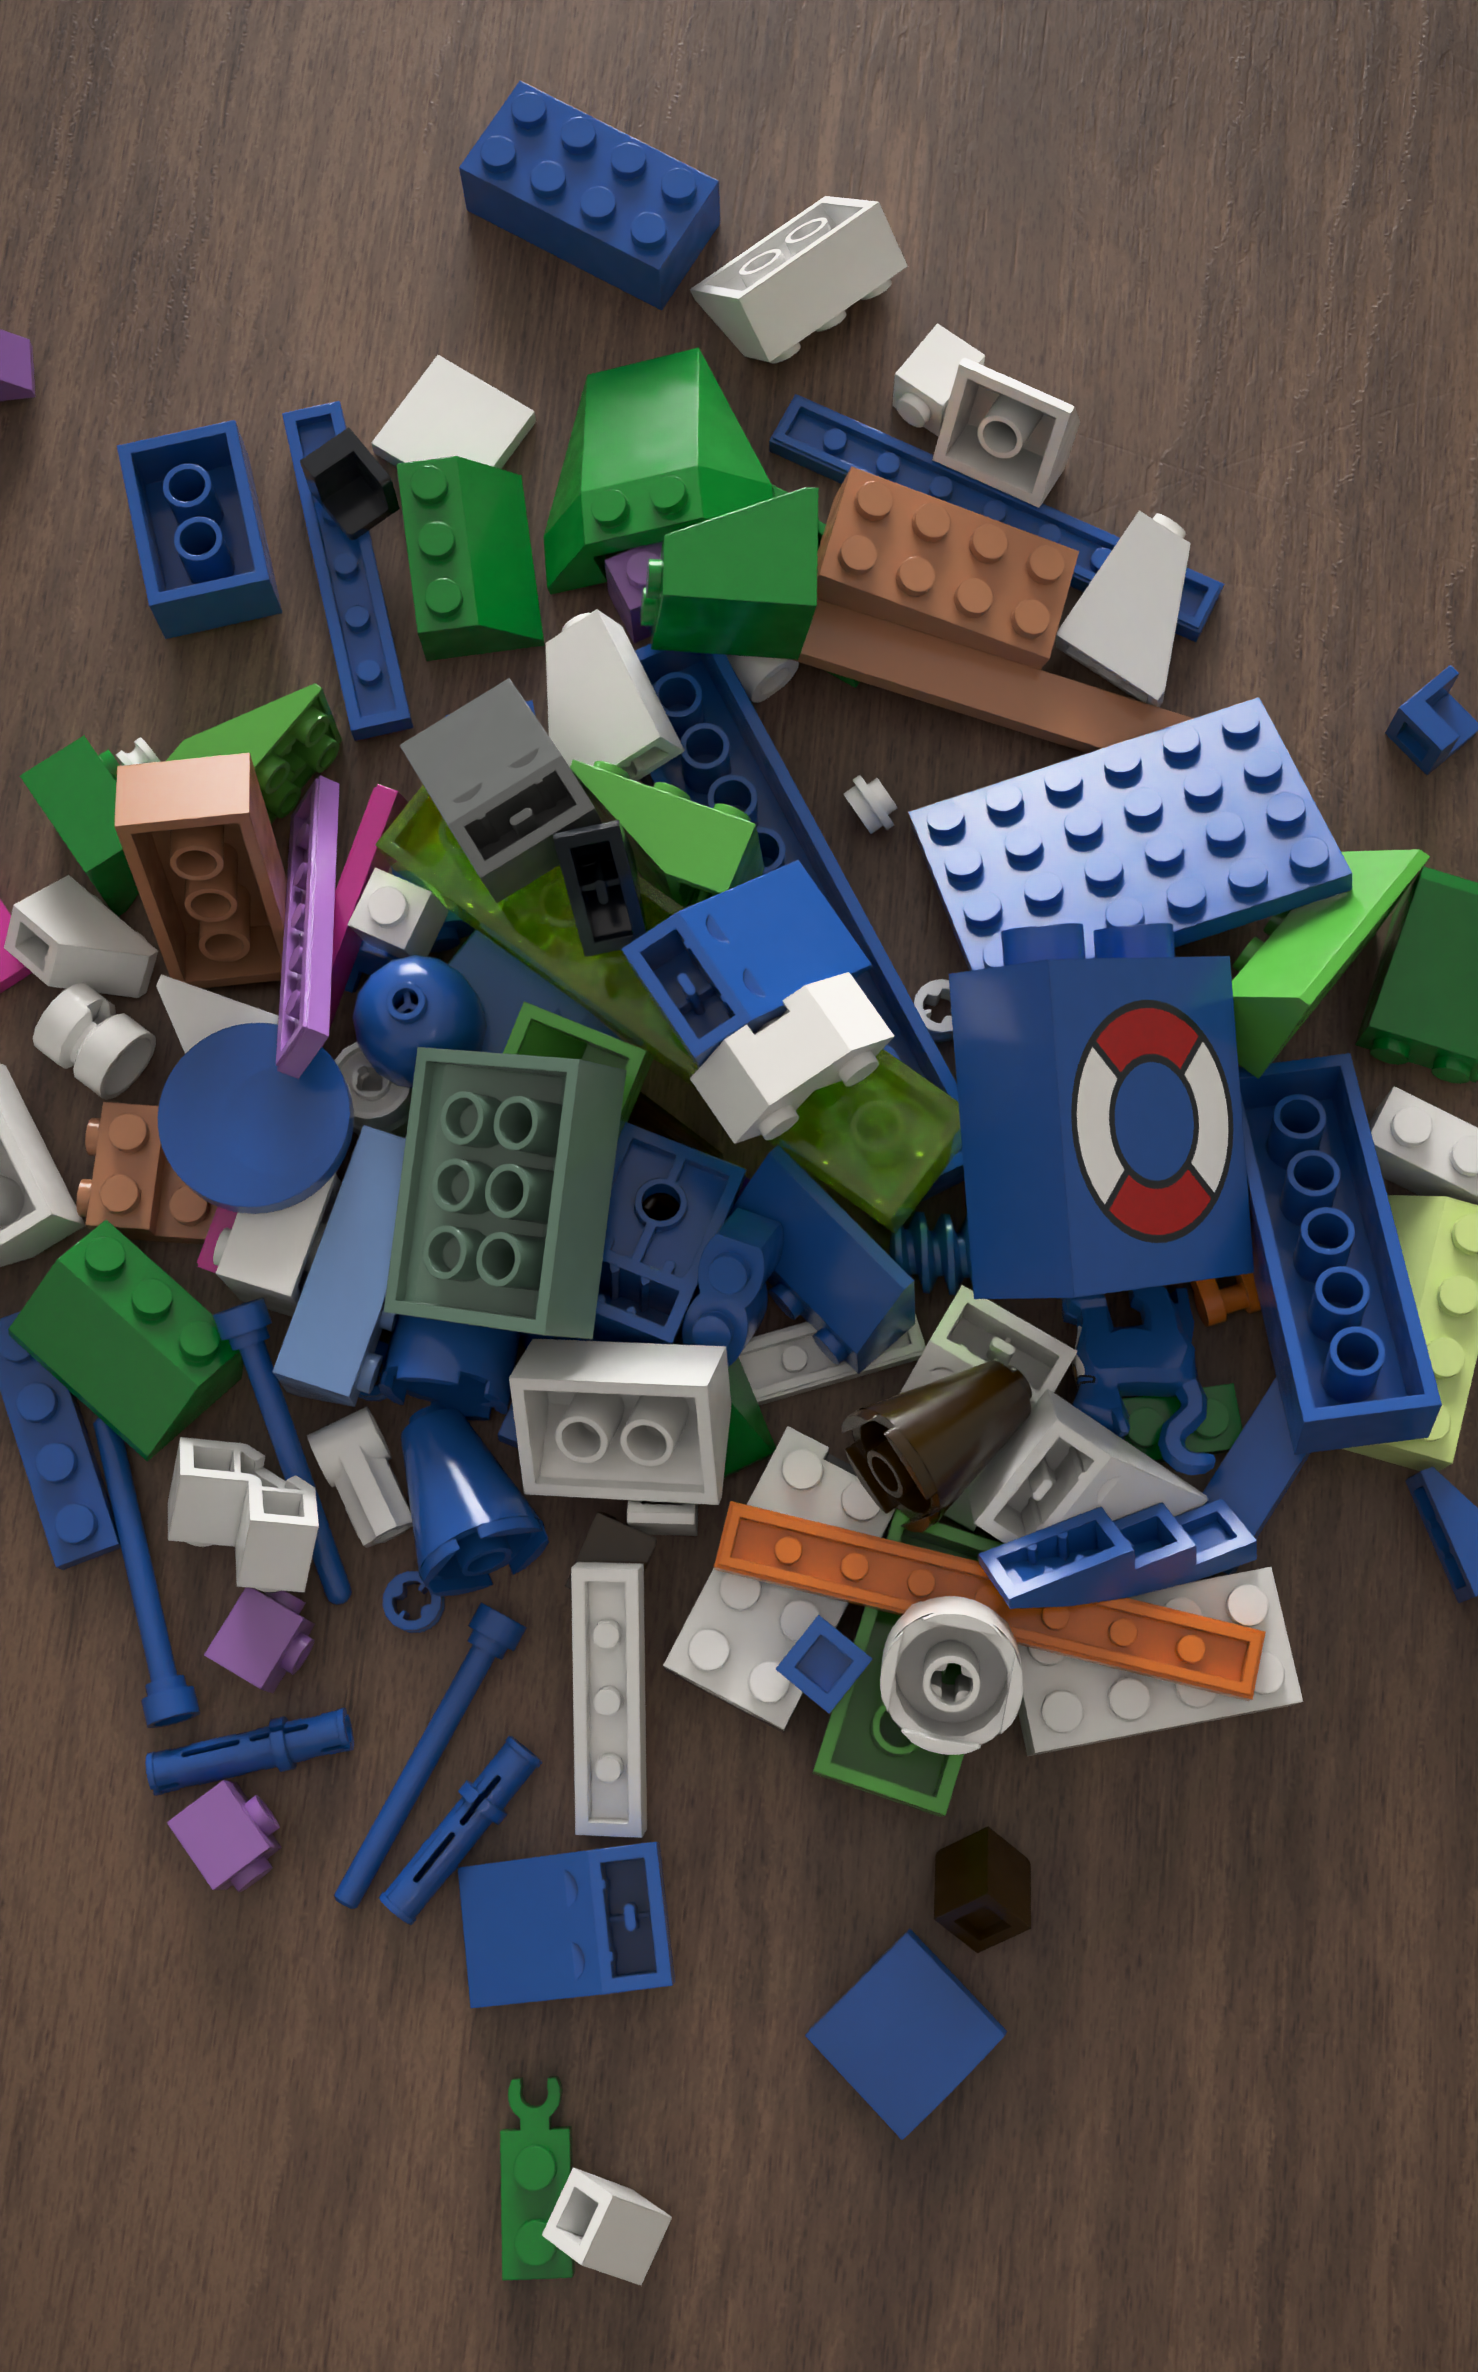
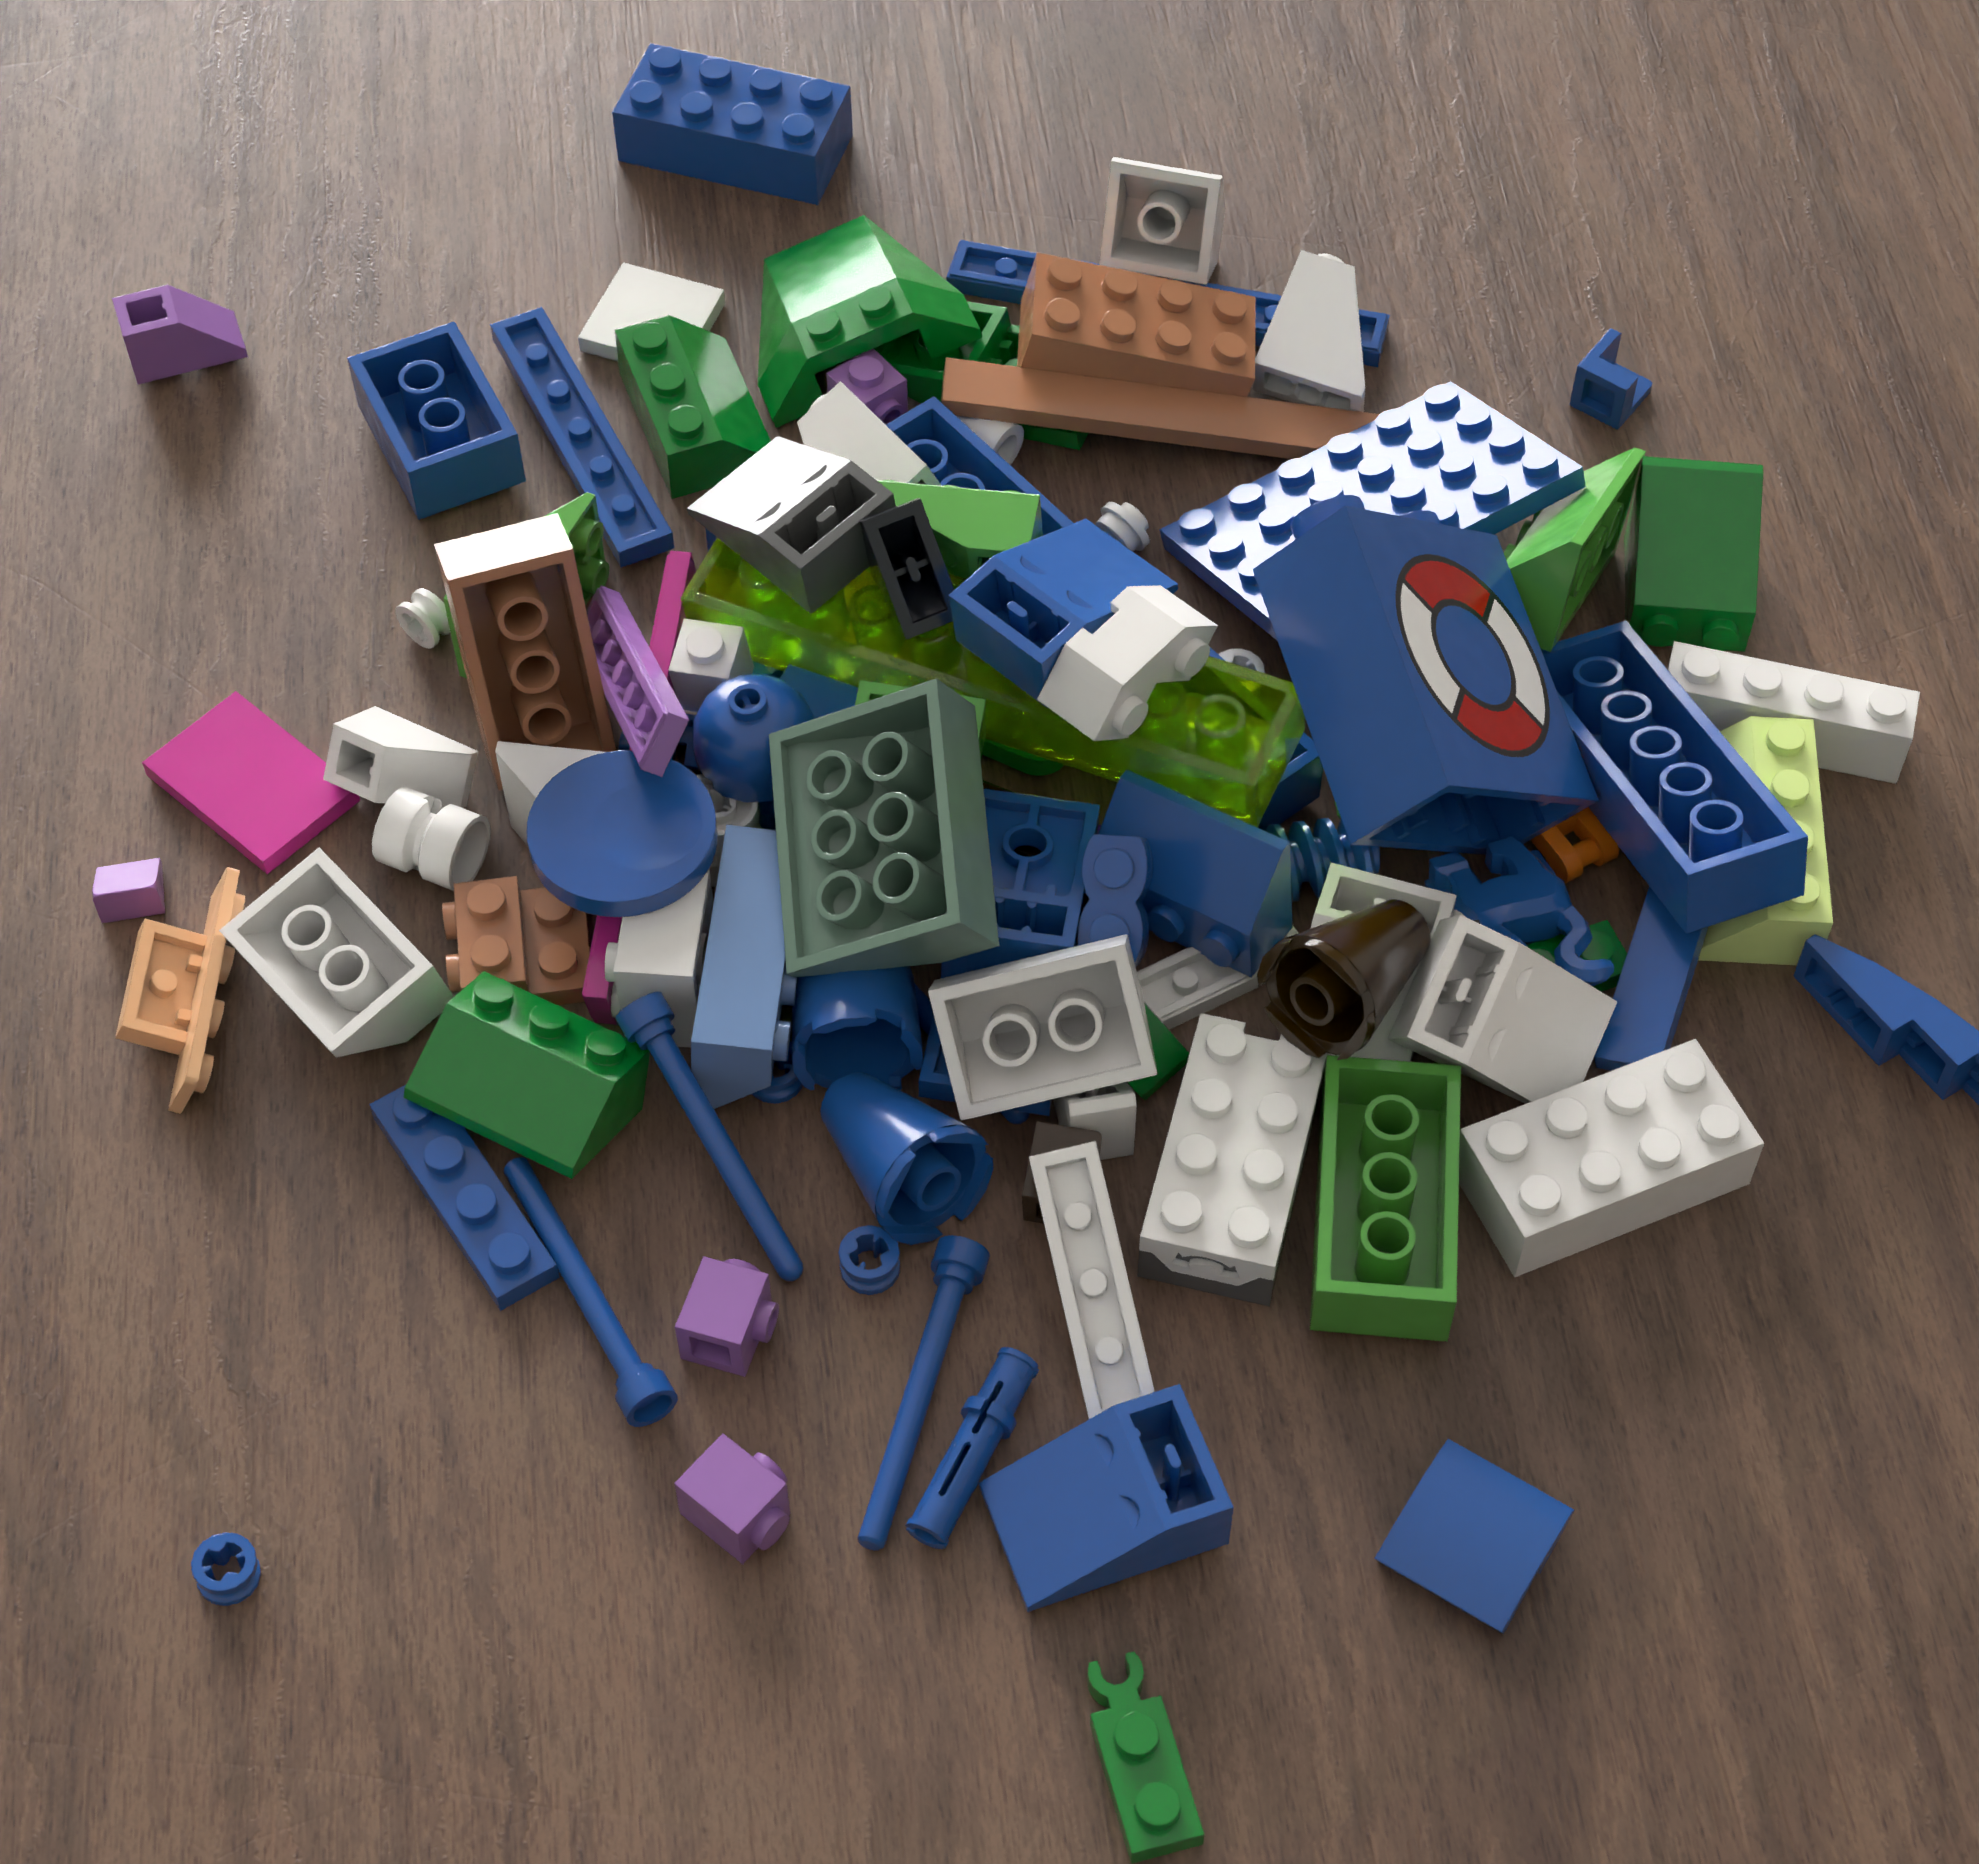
camera: 15 degrees left, 20 degrees down
(79, 799) = (394, 650): green slope -> none
(231, 1500) = (670, 1190): white brick -> none
(265, 1748) = (748, 1417): blue pin -> none
(350, 484) = (572, 357): black panel -> none
(356, 1462) = (783, 1145): white piece -> none
(606, 2226) = (1228, 1763): white brick -> none
(738, 581) = (962, 345): green slope -> none
(802, 277) = (942, 154): white slope -> none
(824, 1664) = (1300, 1186): blue plate -> none
(896, 1575) = (1440, 1108): orange tile -> none
(928, 377) = (1079, 208): white brick -> none
(982, 1890) = (1510, 1389): dark brown panel -> none
(985, 1694) = (1454, 1124): white brick -> none
(1110, 1560) = (1547, 1043): blue slope -> none

